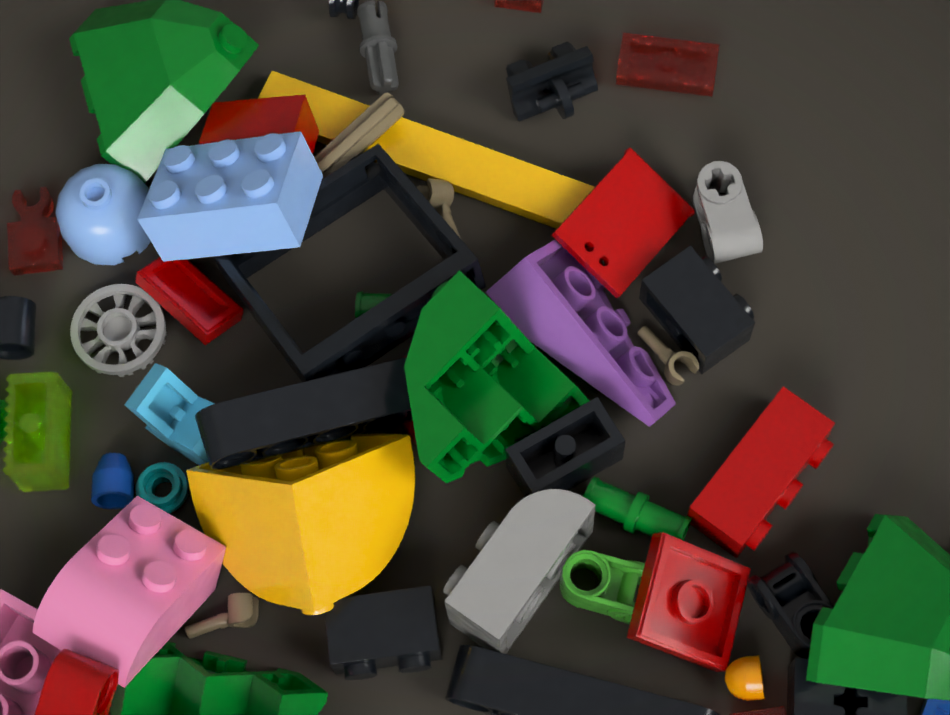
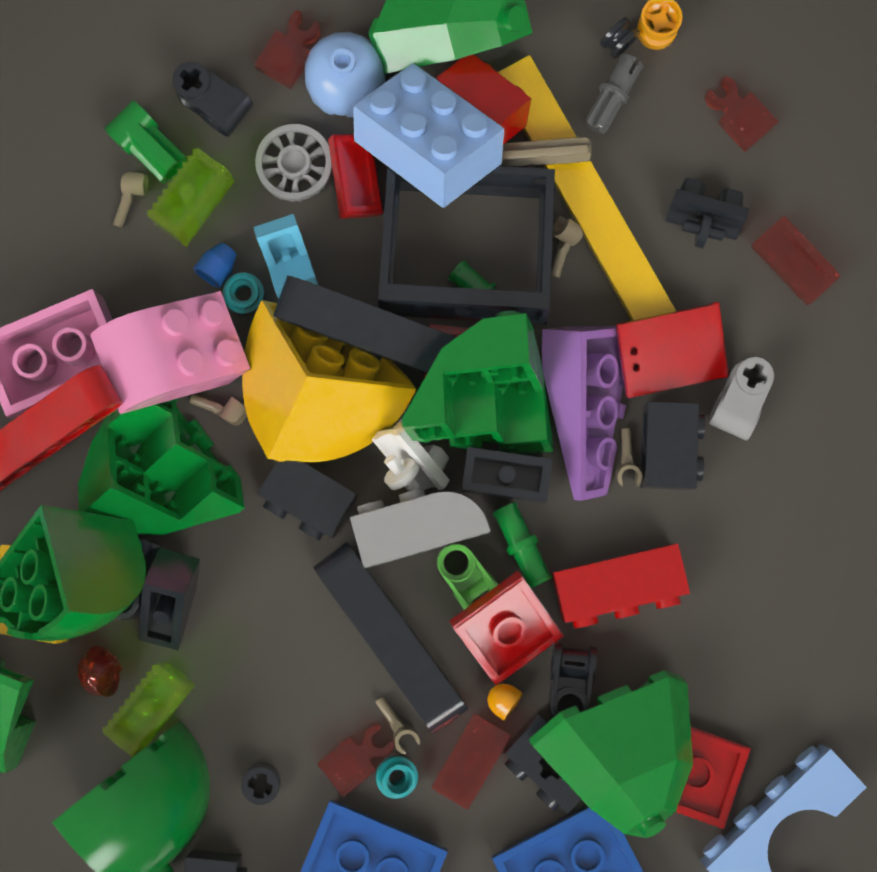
camera: 35 degrees right, 15 degrees up
(456, 509) = (409, 462): none -> white hips

